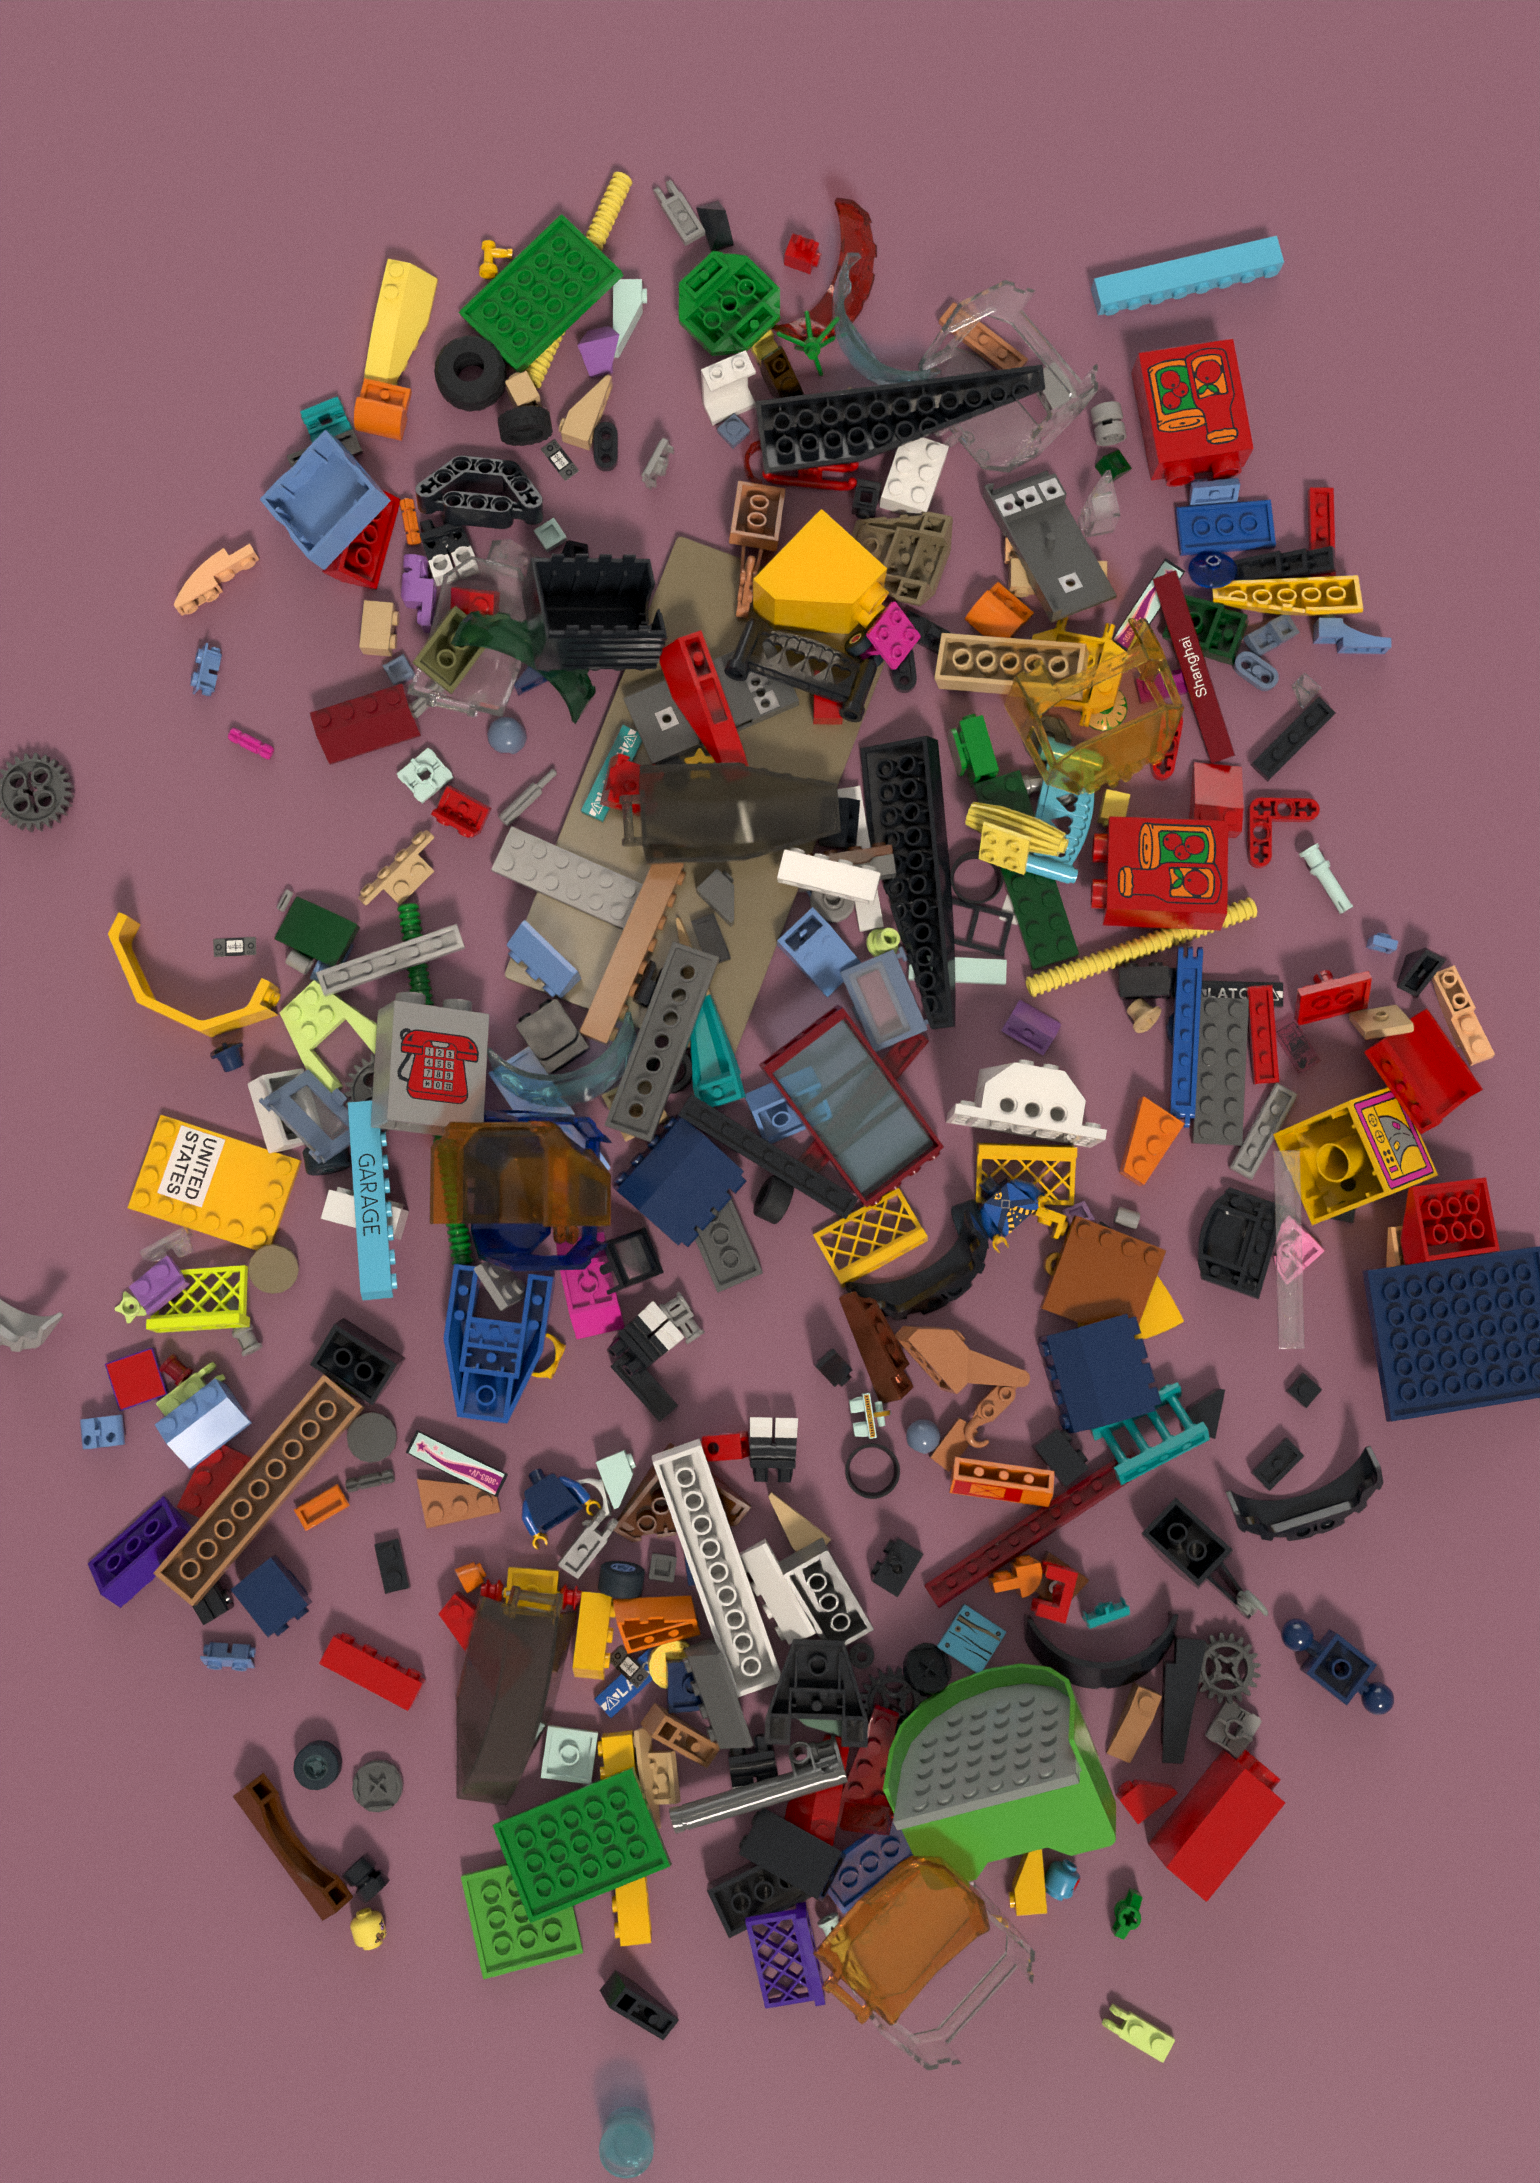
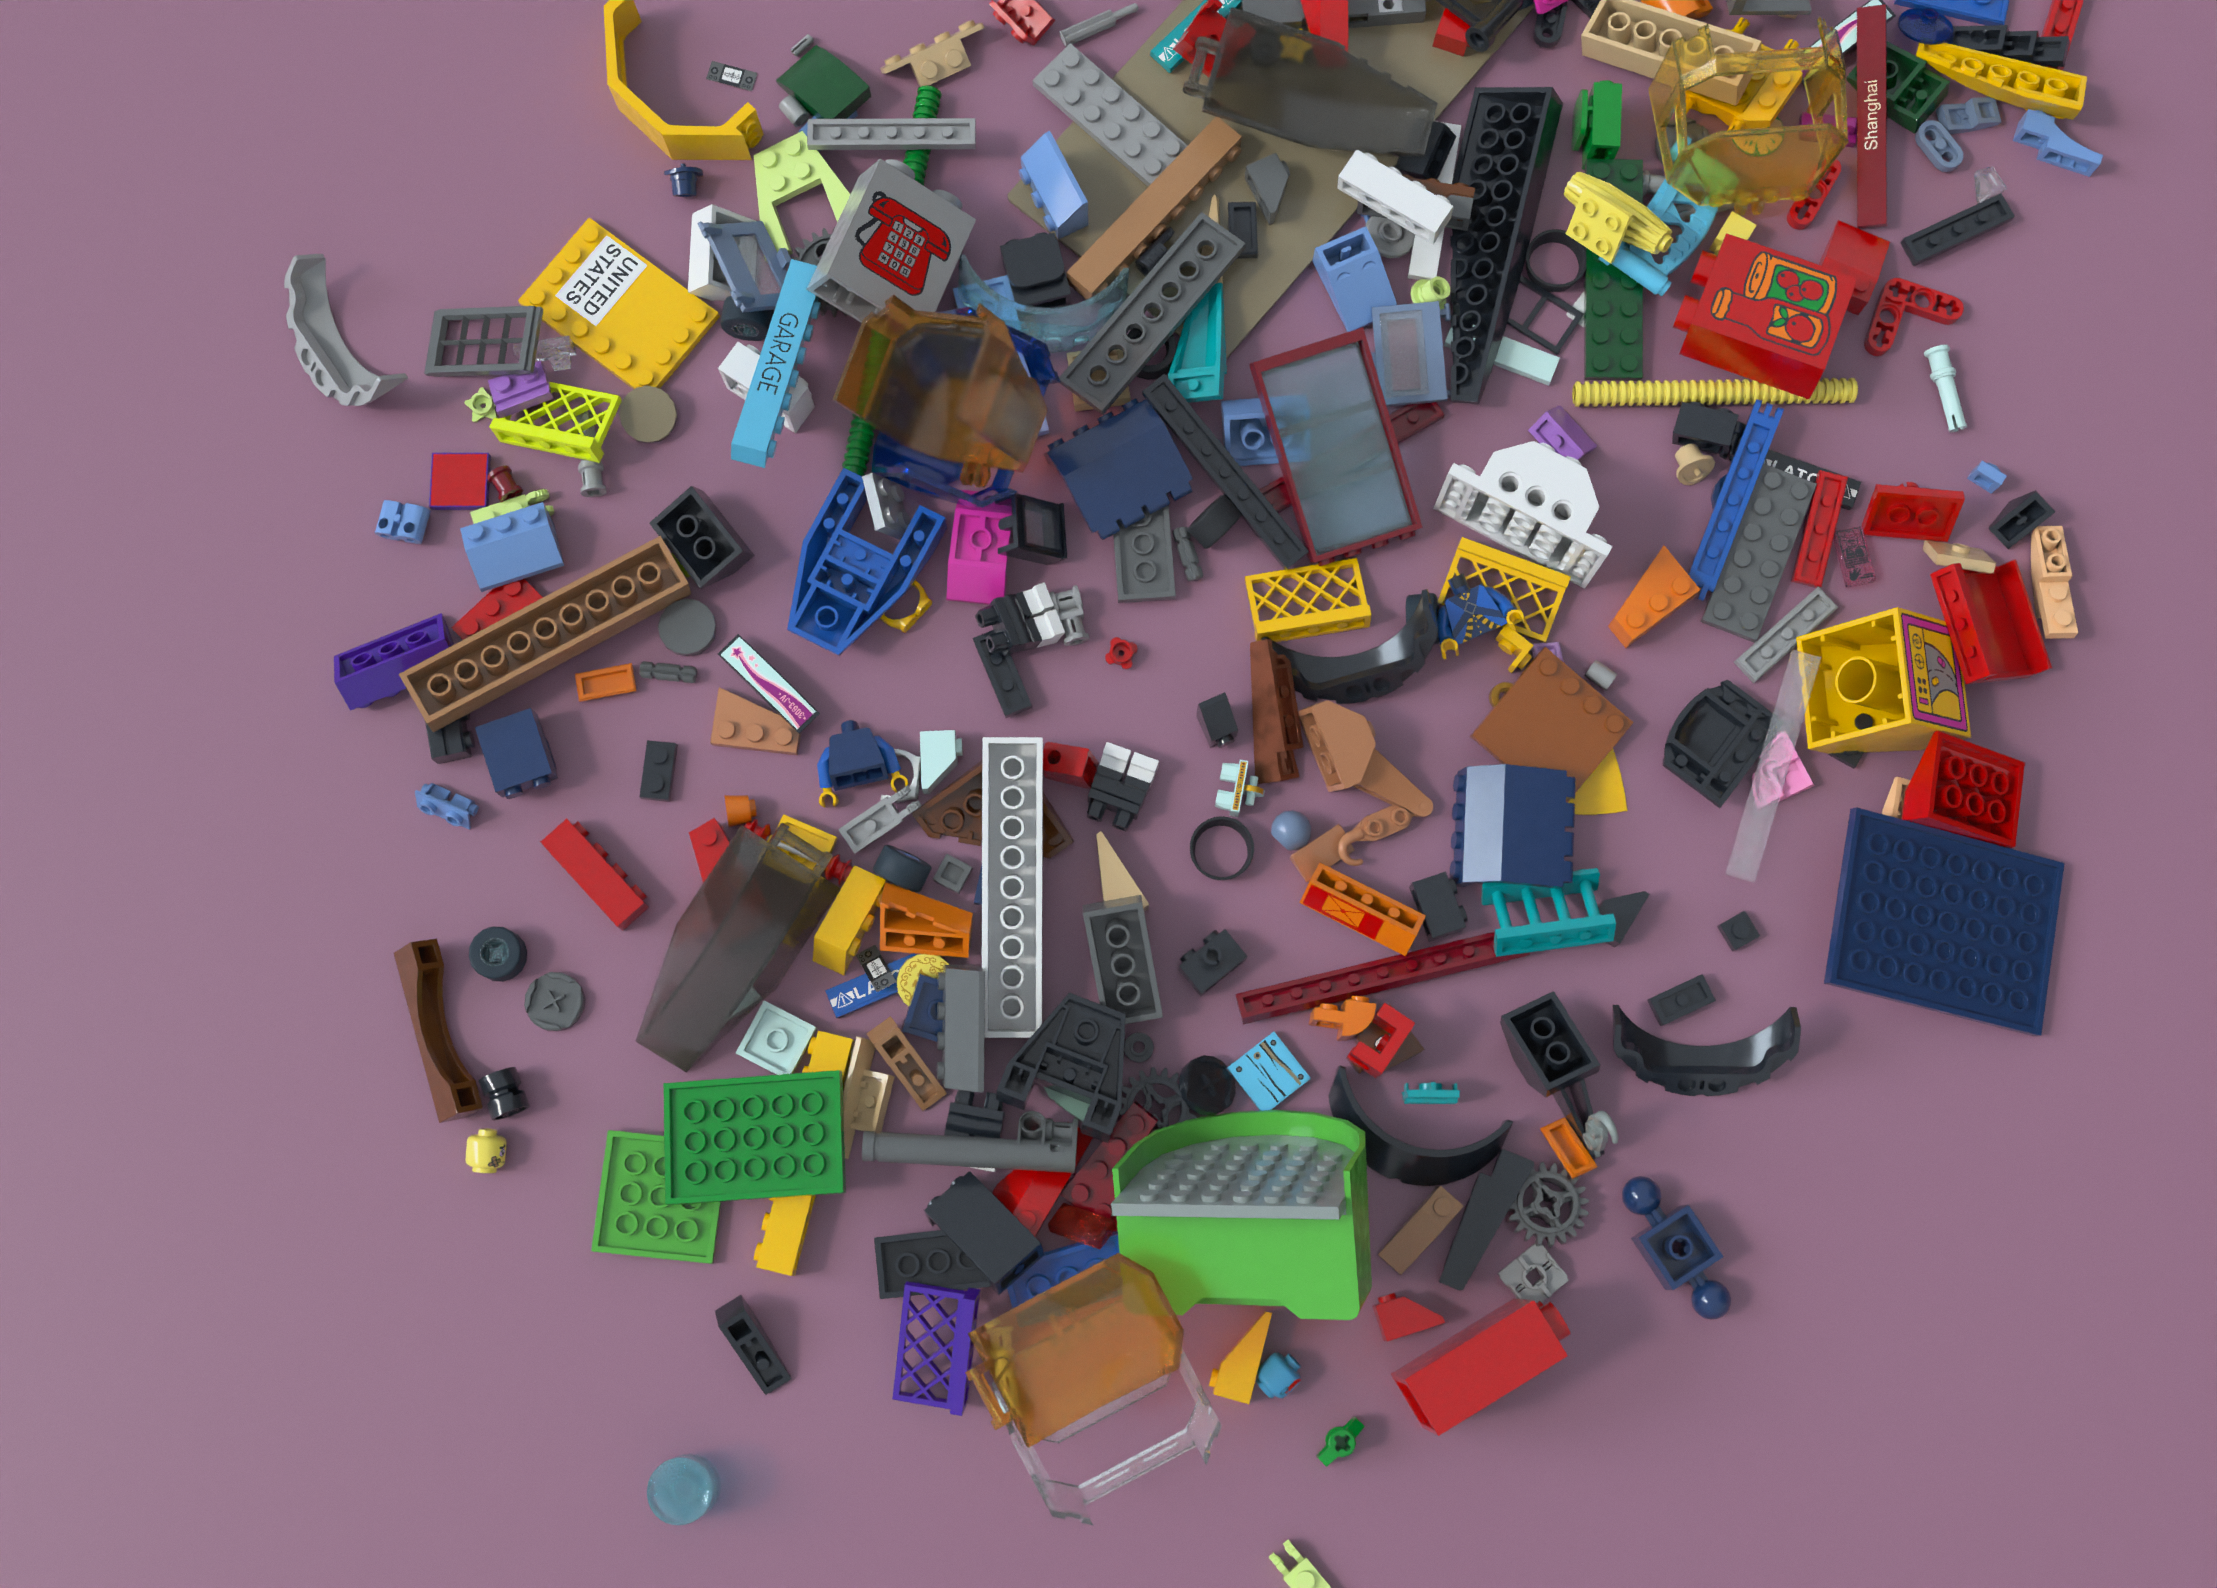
camera: 25 degrees right, 5 degrees down
(152, 1244) = (528, 350): none -> dark grey piece
(730, 1329) = (1121, 645): none -> red plate
(760, 1232) = (1187, 554): none -> dark grey axle
(779, 1598) = (1069, 940): white slope -> none
(1228, 1616) = (1568, 1148): none -> orange tile

